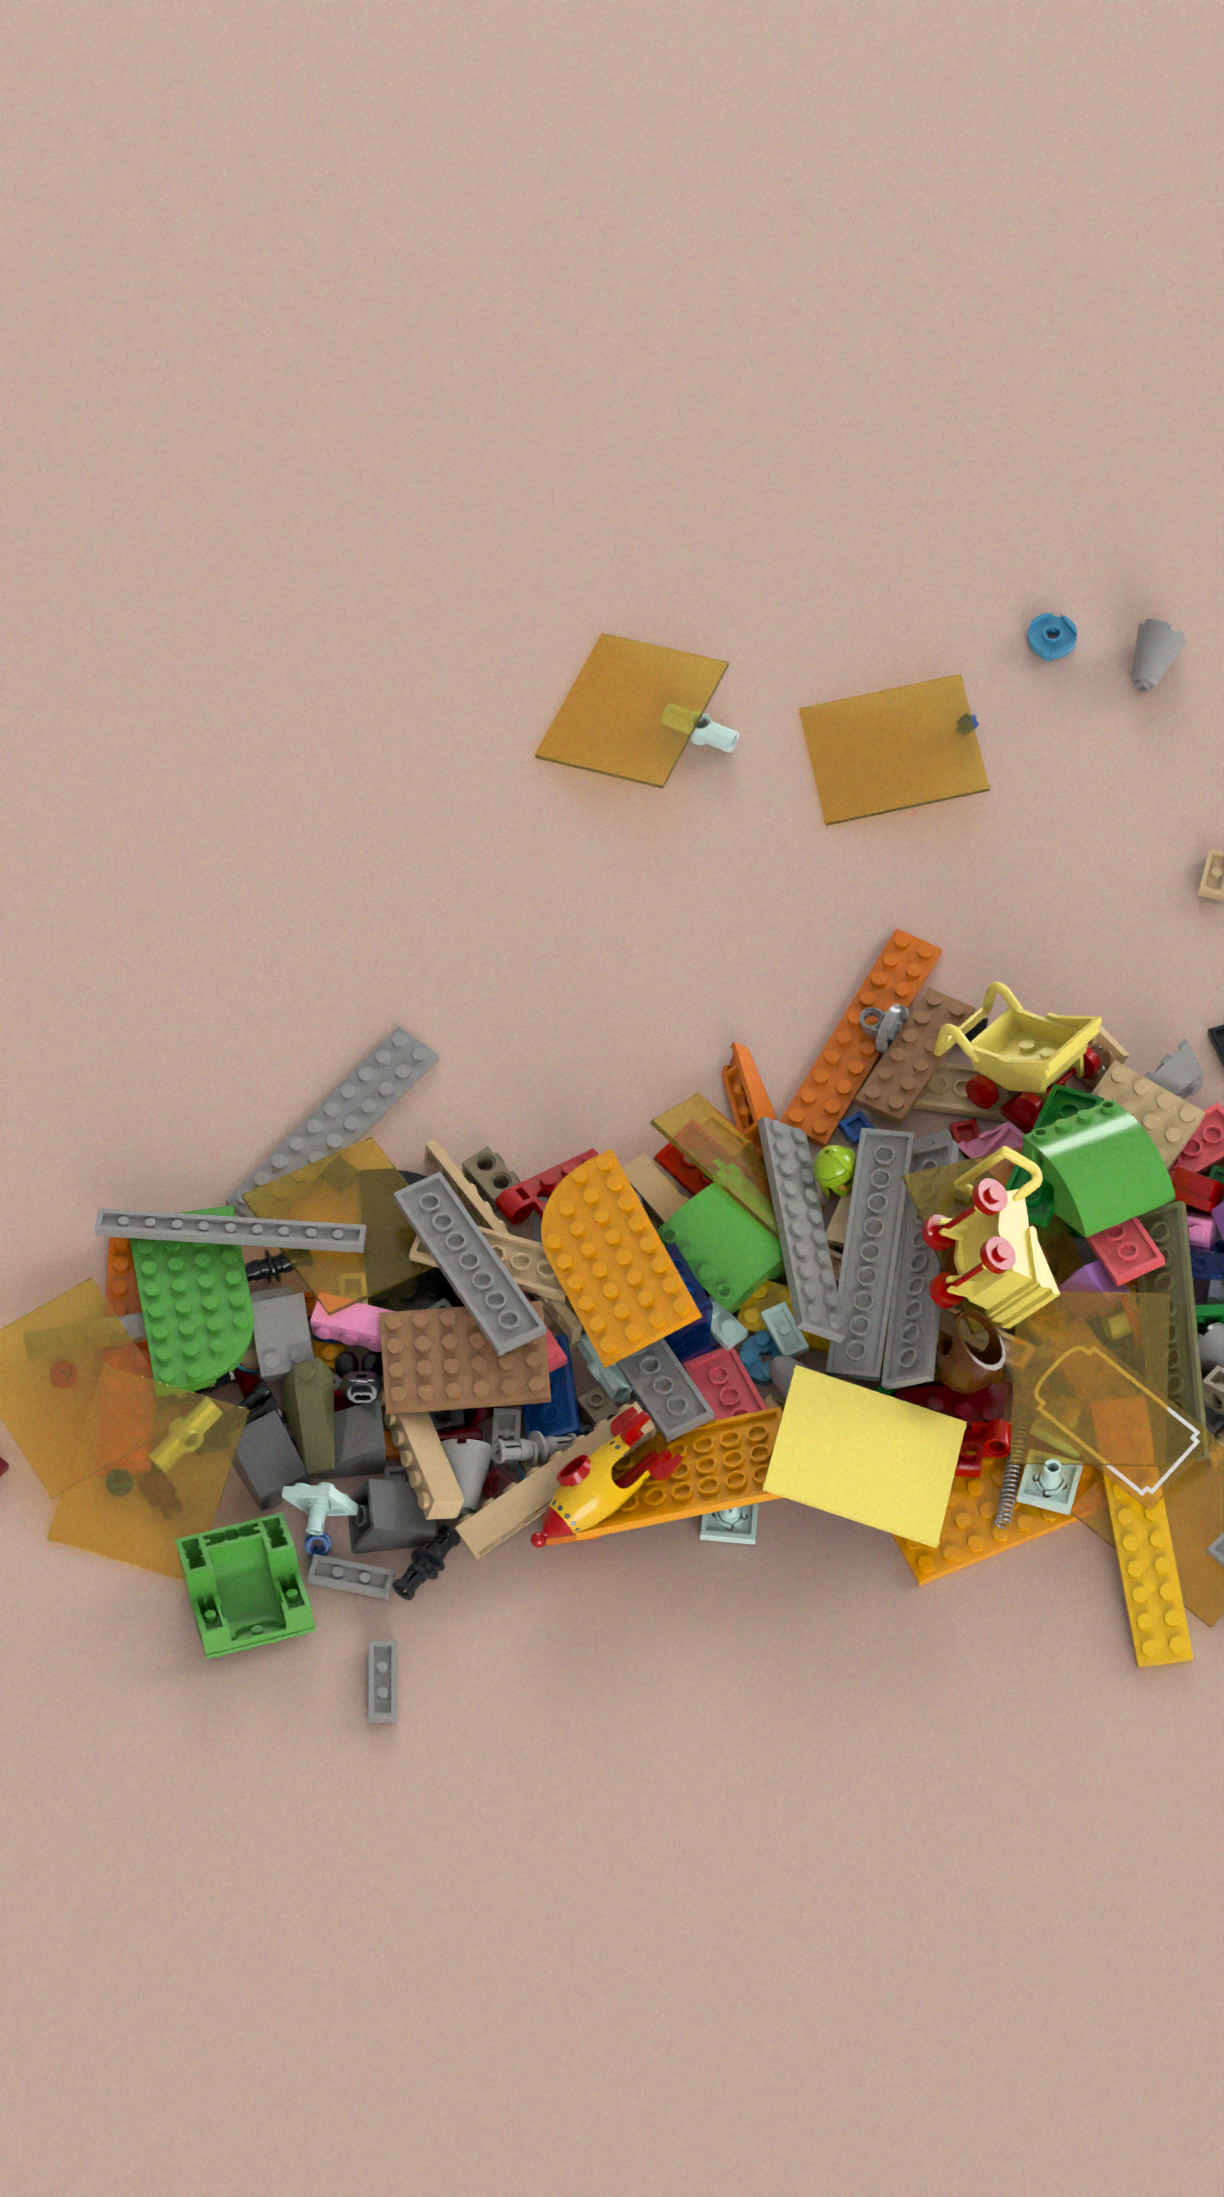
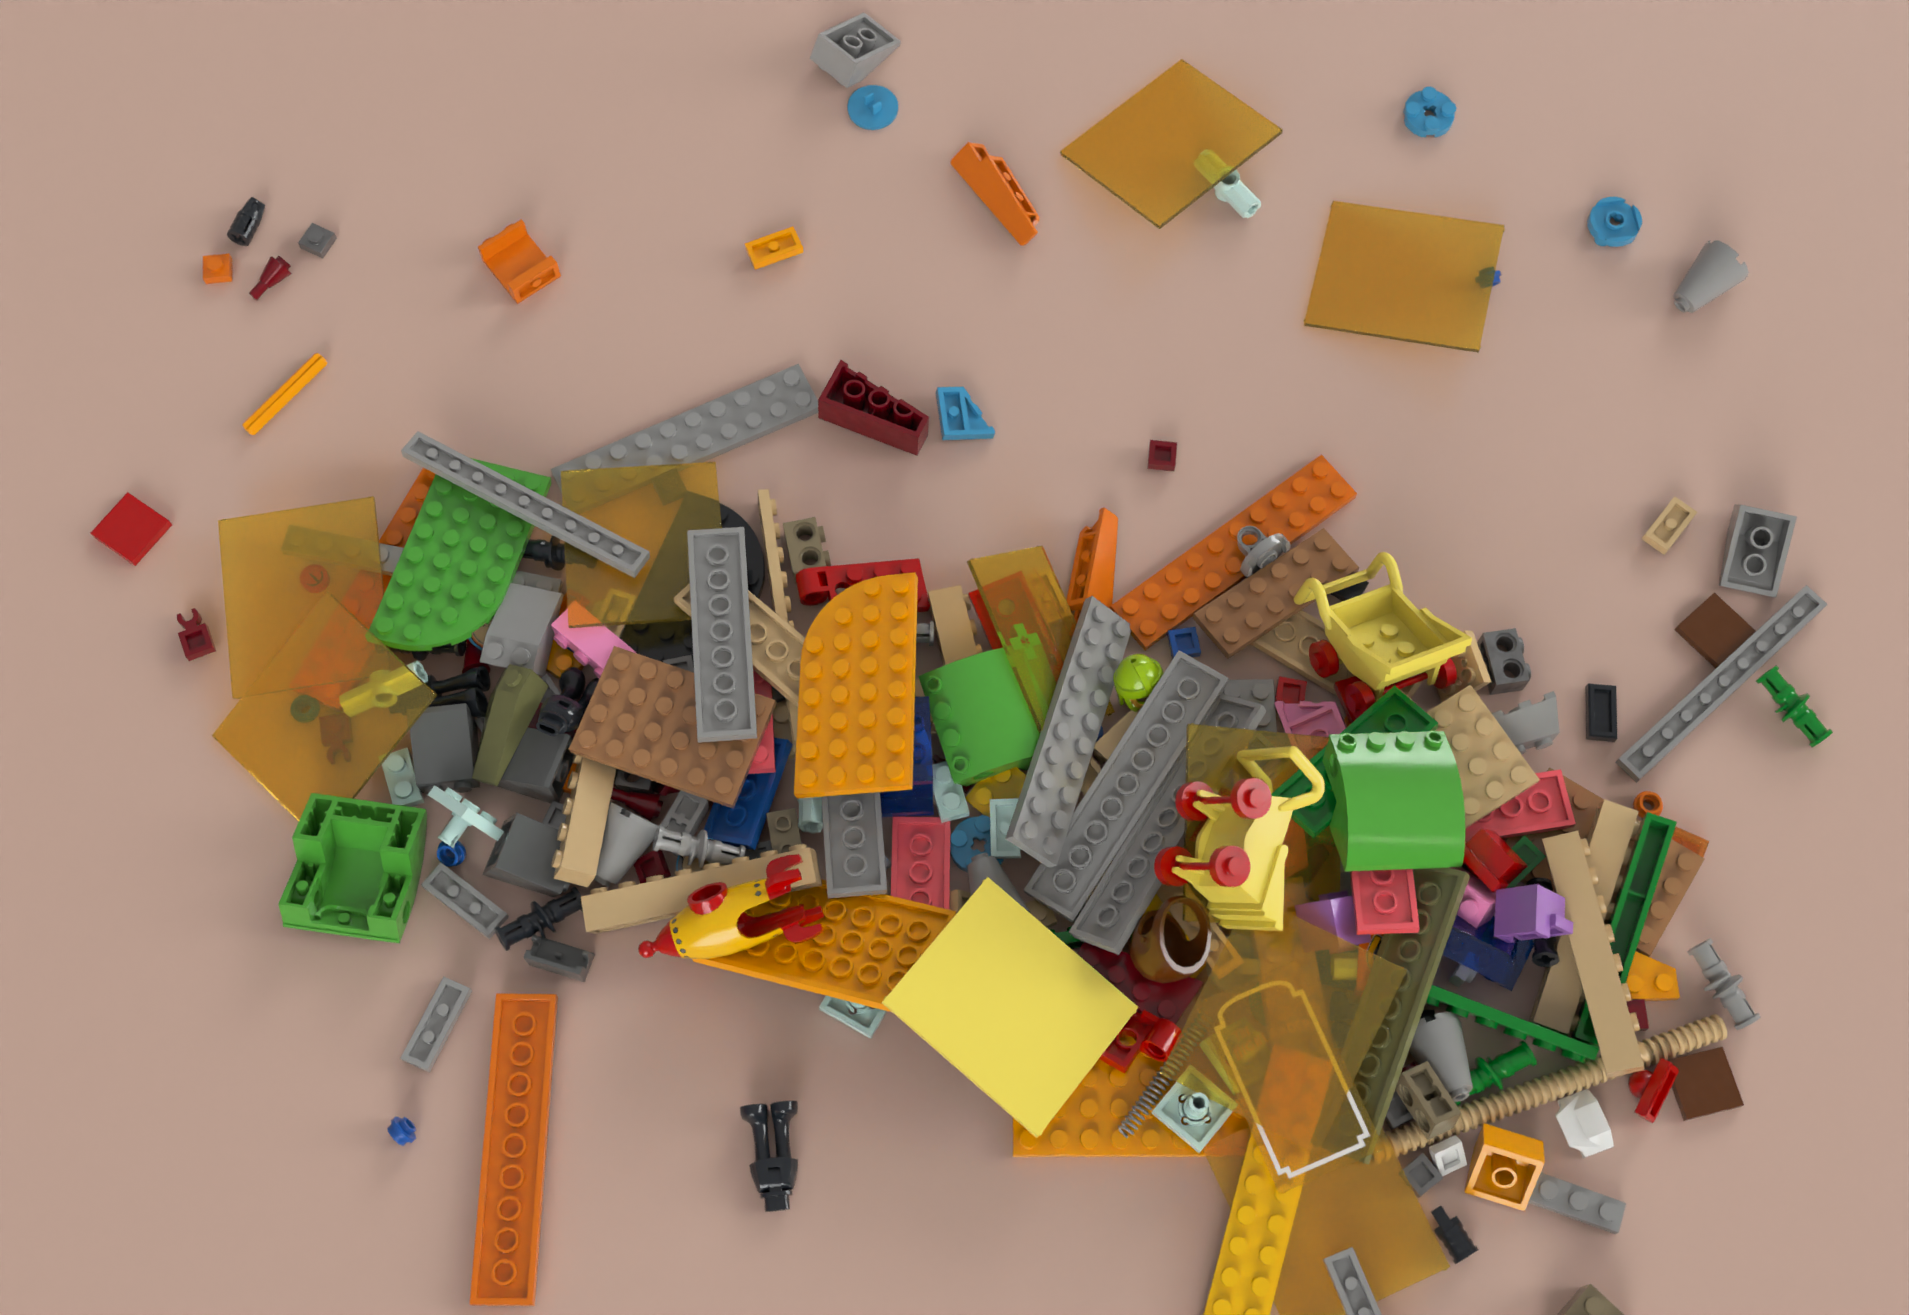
camera: 25 degrees right, 10 degrees up
(94, 1036) = (518, 262): none -> orange panel
(239, 1504) = (401, 779): none -> light aqua plate
(300, 733) = (853, 49): none -> light grey slope
(322, 935) = (774, 247): none -> light orange plate
(342, 779) = (872, 107): none -> dark azure piece
(400, 1772) = (402, 1130): none -> blue plate
(459, 1590) = (559, 958): none -> dark grey hinge
(489, 1040) = (871, 411): none -> dark red wedge
(497, 809) = (998, 190): none -> orange wedge
(503, 1747) = (514, 1151): none -> orange plate
(565, 1015) = (960, 416): none -> dark azure wing
(730, 1677) = (772, 1175): none -> black piece
(759, 981) = (1162, 455): none -> dark red plate
(846, 588) = (1433, 101): none -> dark azure plate
(1130, 1038) = (1498, 661): none -> flat silver brick

